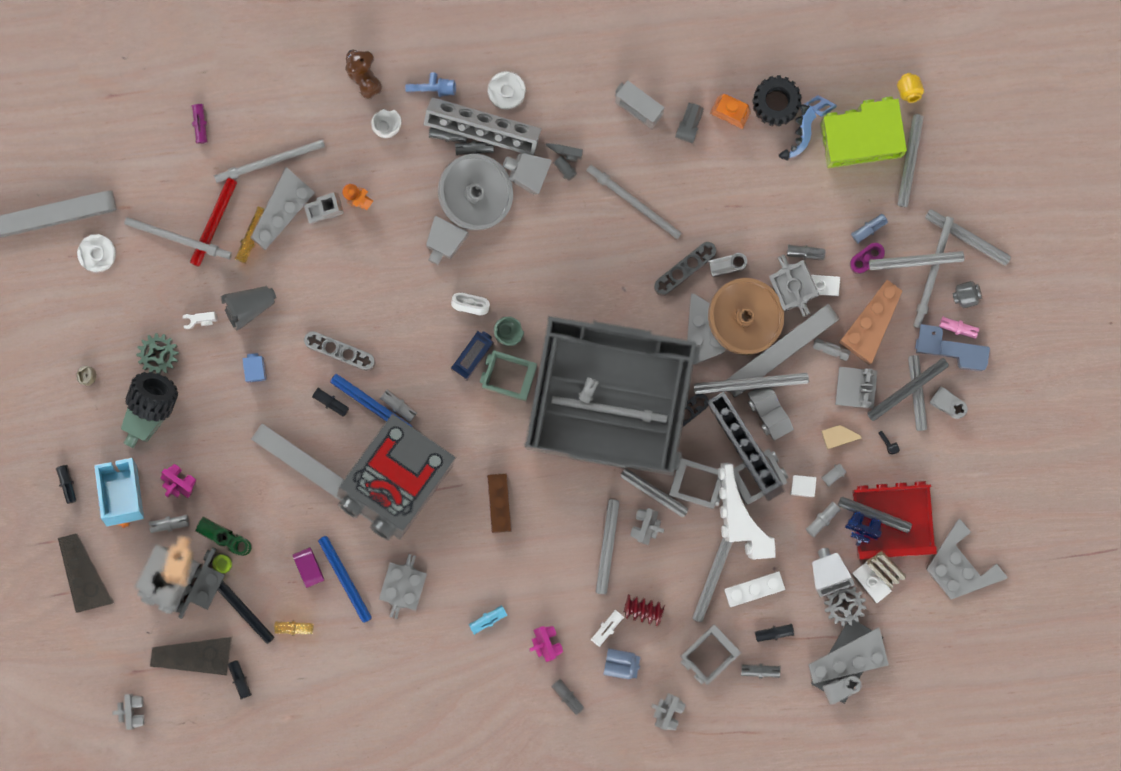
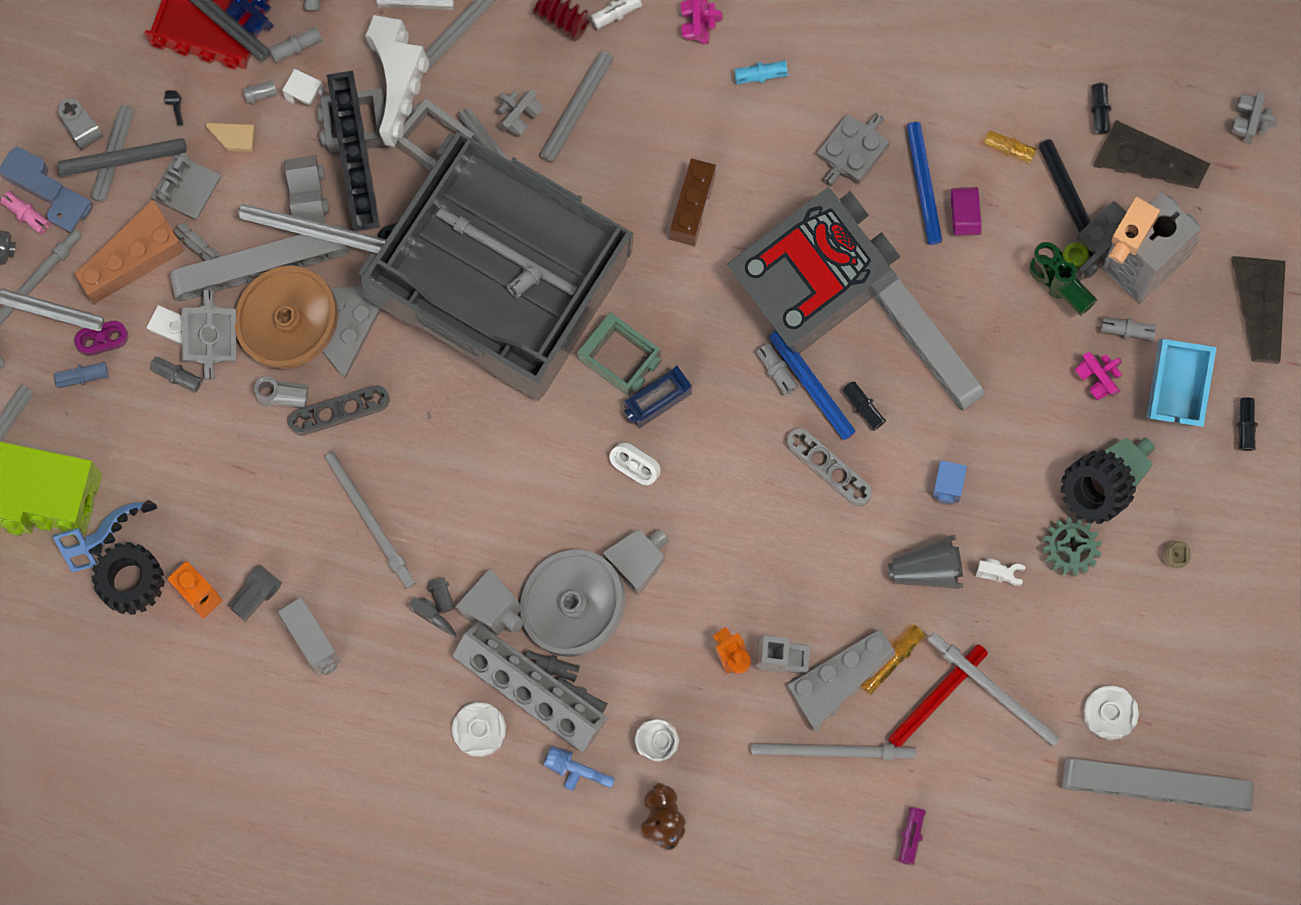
camera: 160 degrees left, 10 degrees down
(508, 331) = (598, 409): sand green hair -> none

